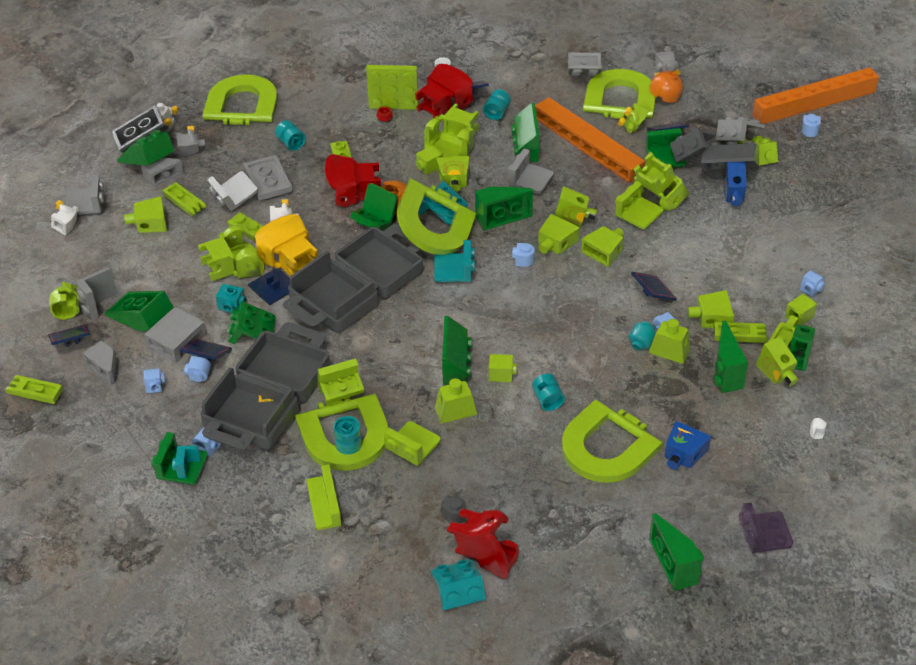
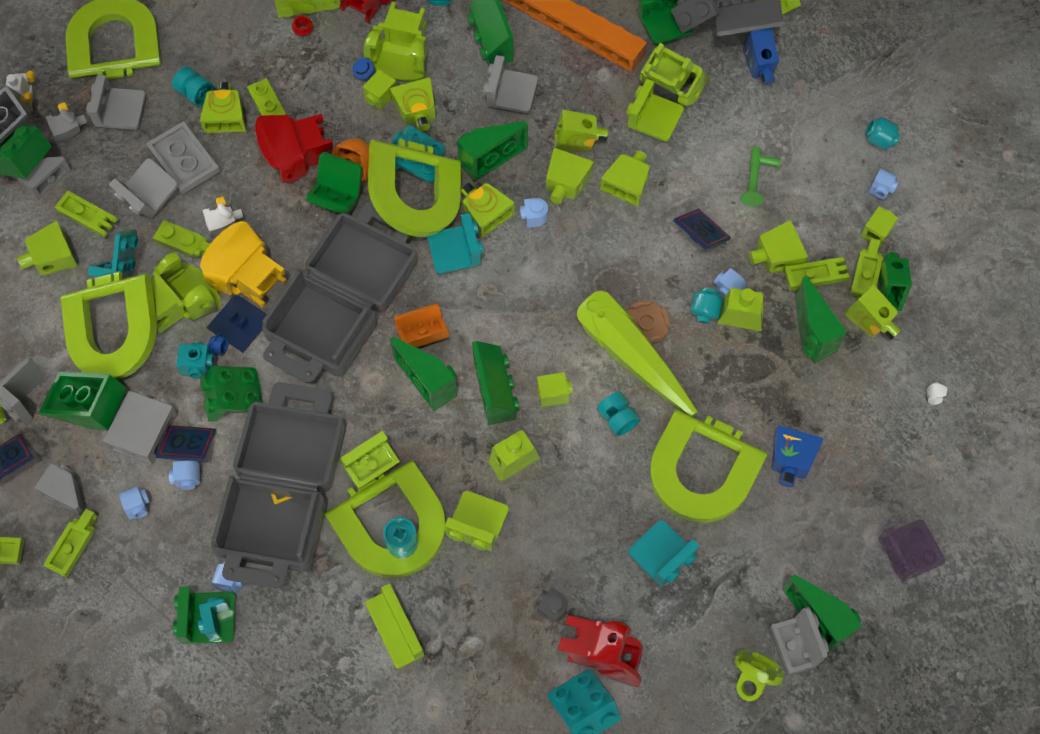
camera: 15 degrees left, 20 degrees up
(97, 397) = (71, 544): none -> lime hinge
(194, 274) = (141, 325): none -> lime piece
(200, 224) = (123, 256): none -> teal bracket
(228, 140) = (115, 106): none -> light grey bracket
(253, 294) = (218, 344): none -> blue plate
(306, 154) = (223, 111): none -> lime torso
(404, 336) = (426, 372): none -> green slope
(410, 309) = (421, 326): none -> orange bracket
(420, 145) = (364, 69): none -> blue tile
(488, 245) = (487, 207): none -> lime torso
(556, 492) = (663, 553): none -> teal bracket
(570, 350) = (629, 346): none -> lime piece
(591, 341) = (651, 319): none -> medium nougat tile
(608, 585) = (758, 670): none -> lime tile
(650, 572) = (800, 642): none -> light grey bracket
(701, 273) = (752, 197): none -> bright green piece
(821, 250) = (882, 133): none -> teal head

